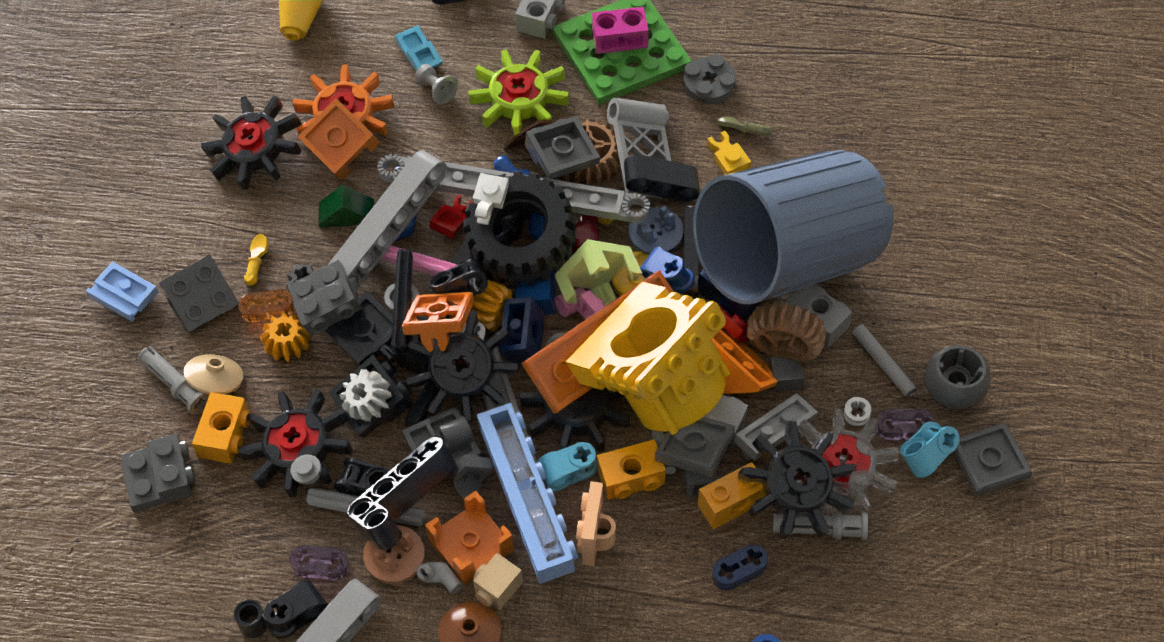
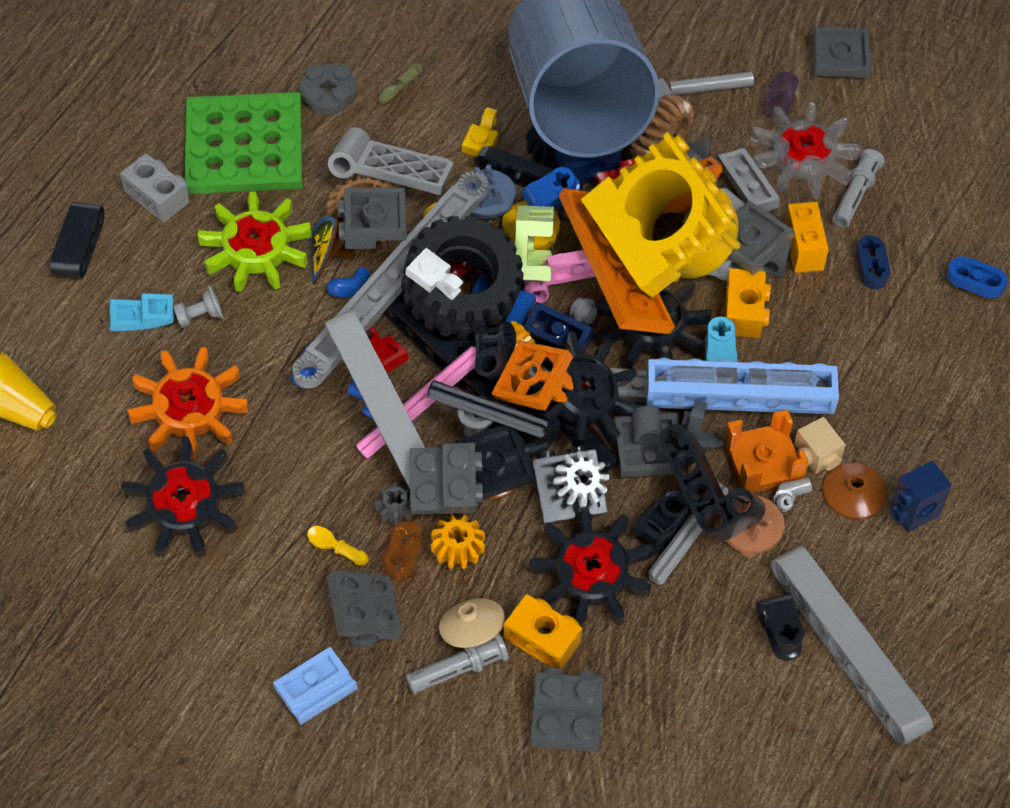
camera: 70 degrees left, 0 degrees up
(245, 609) = (780, 655): black beam -> none
(306, 469) = (643, 557): light grey plate -> none
(320, 560) = (728, 588): clear purple beam -> none
(338, 138) = (239, 408): orange panel -> none
(344, 208) = (317, 444): dark green slope -> none
(592, 520) = (796, 342): light nougat plate -> none
(620, 30) = (238, 126): dark pink brick -> none
(661, 178) = (441, 158): black beam -> none
(727, 156) = (429, 107): yellow plate -> none
(793, 497) = (826, 176): black gear -> none
(857, 402) = (756, 116): white bush -> none
(925, 448) = (816, 80): medium azure piece -> none
(963, 367) = (763, 34): dark grey wheel -> none

